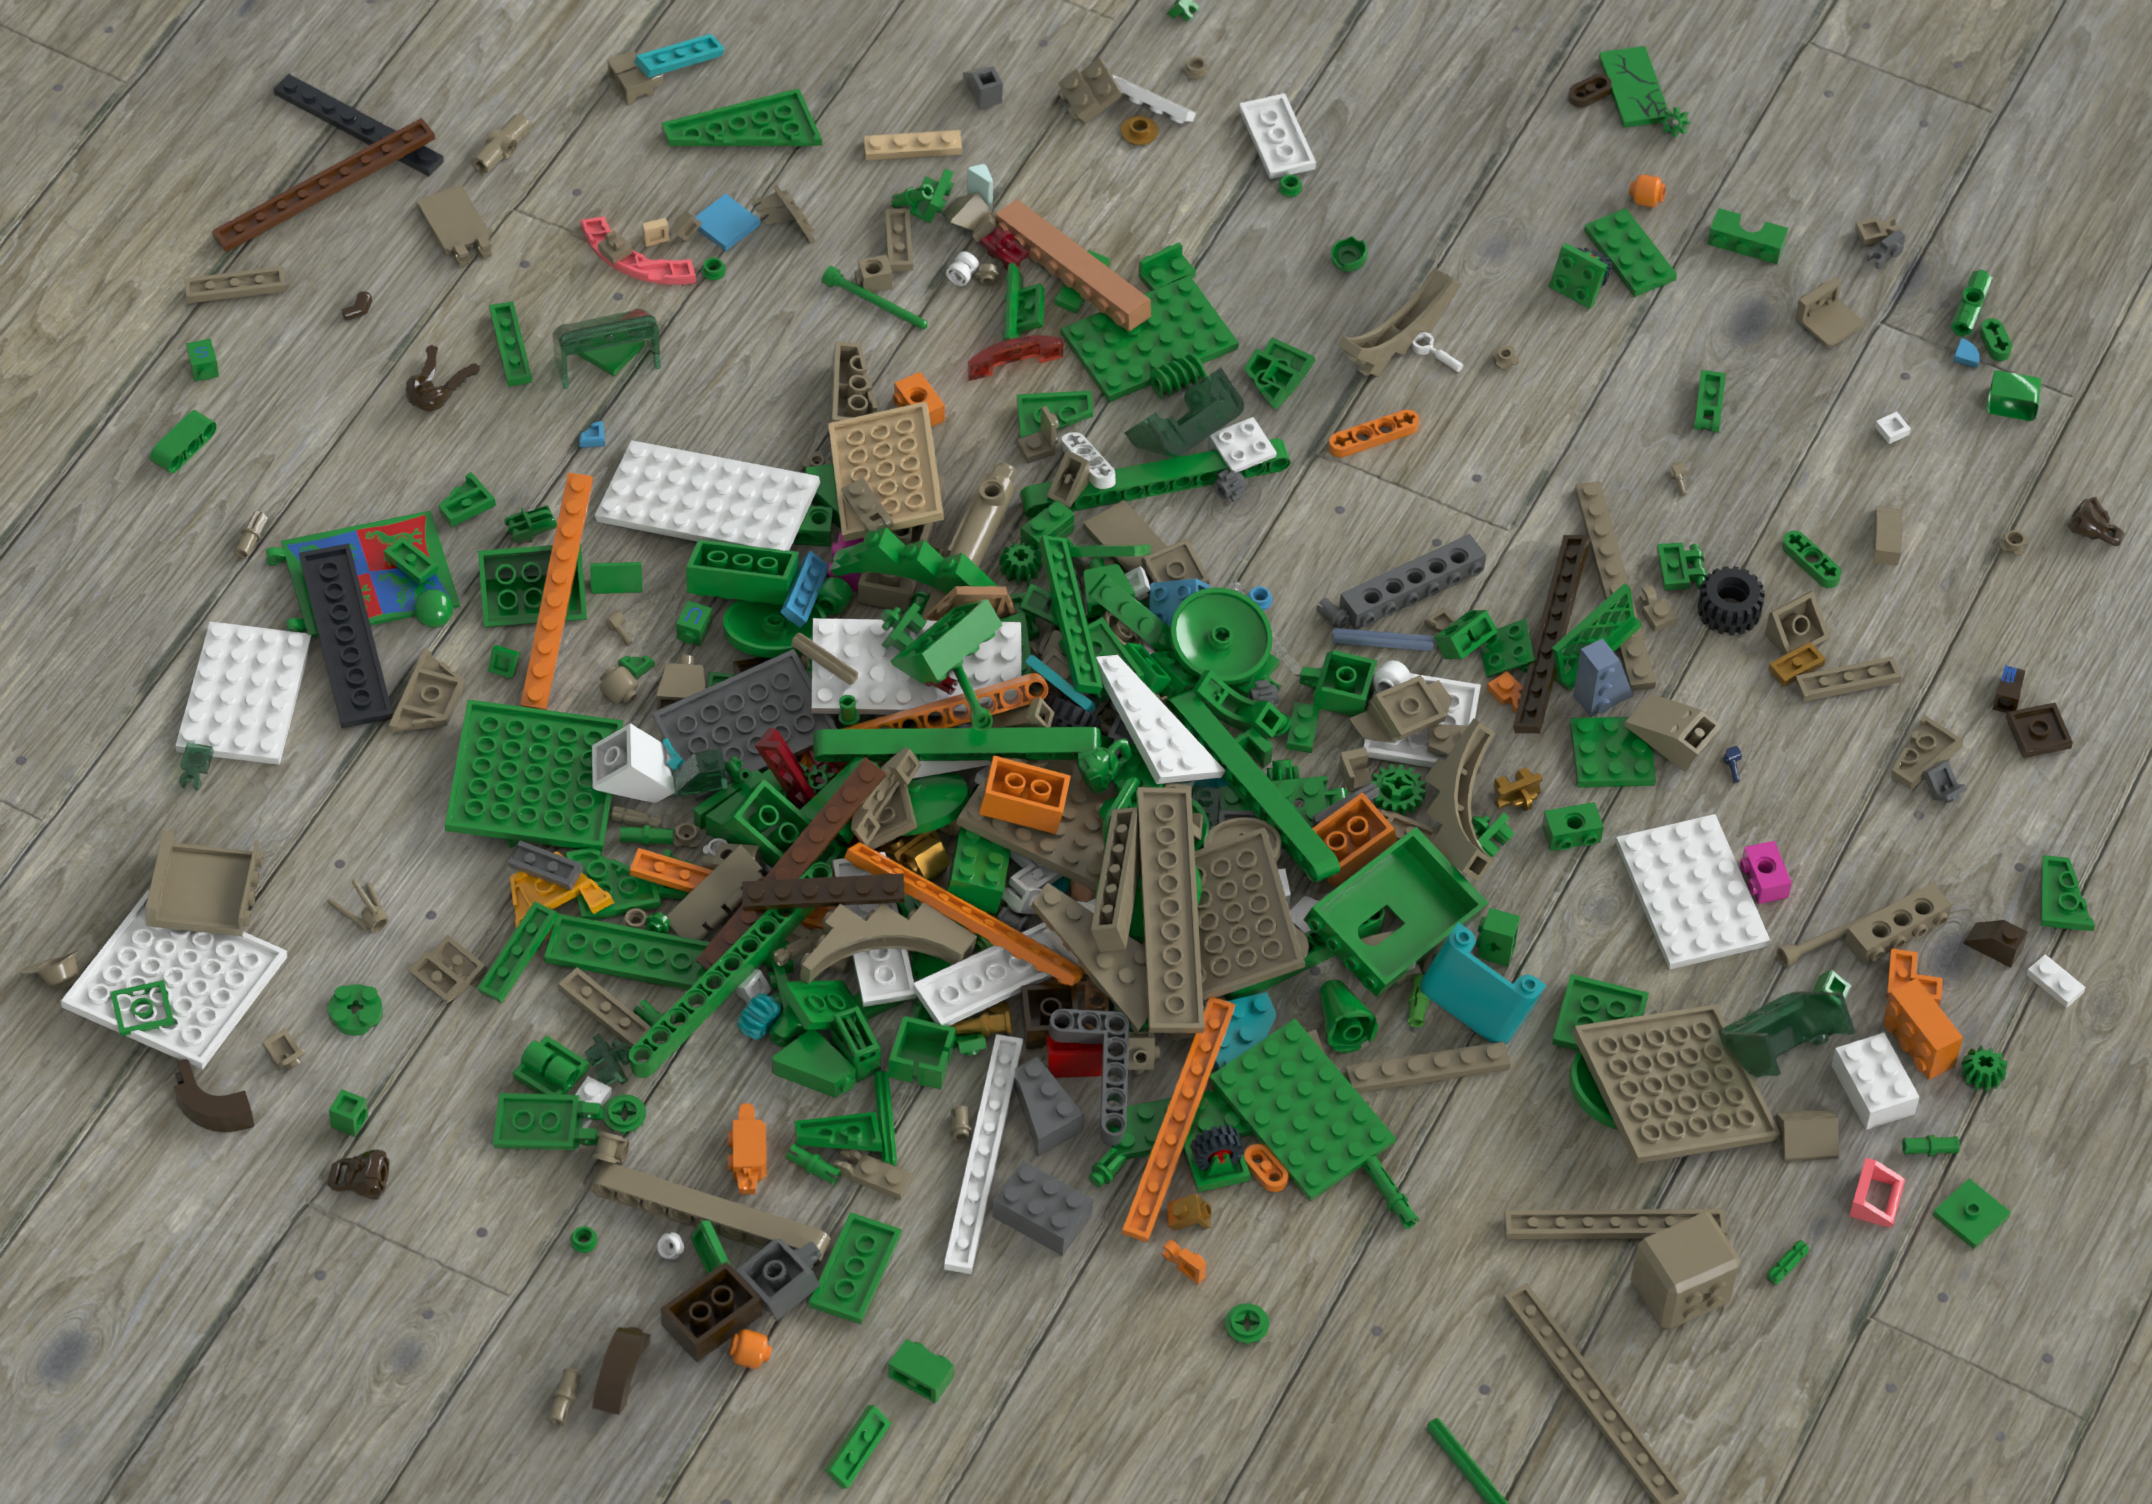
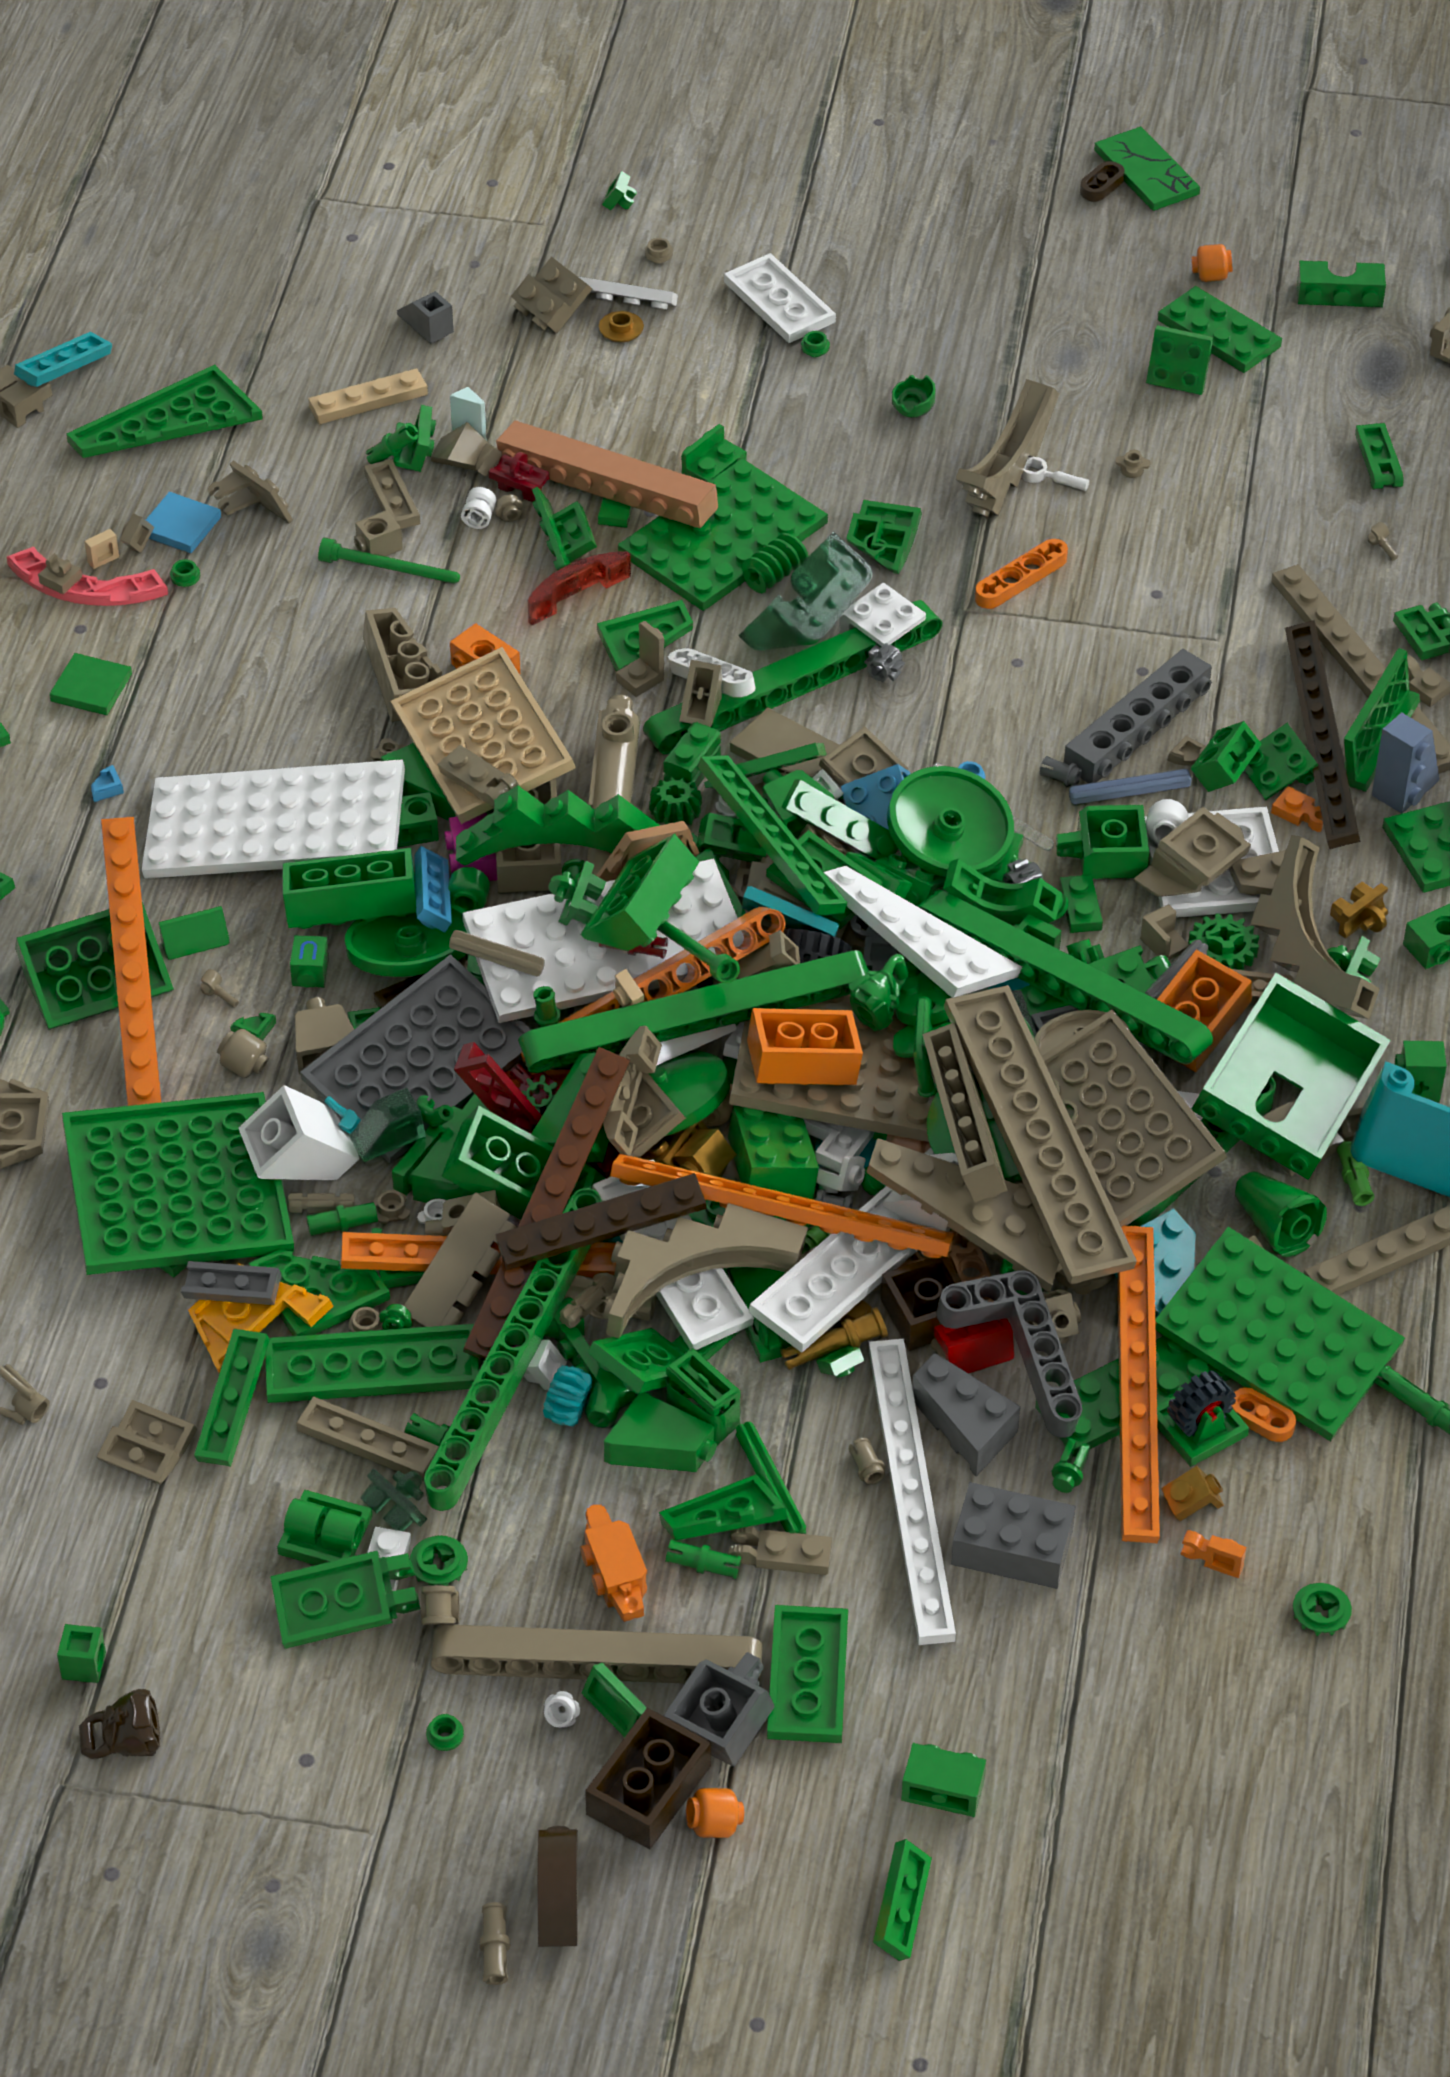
camera: 15 degrees left, 5 degrees down
(350, 996) = (43, 1505): green plate -> none
(503, 661) = (89, 1060): green tile -> none
(530, 523) = (66, 897): green arm -> none
(605, 333) = (86, 661): clear green windscreen -> none
(907, 716) = (627, 990): none -> tan plate
(922, 1052) = (788, 1386): green piece -> none
(1674, 128) = (1216, 195): green gear -> none

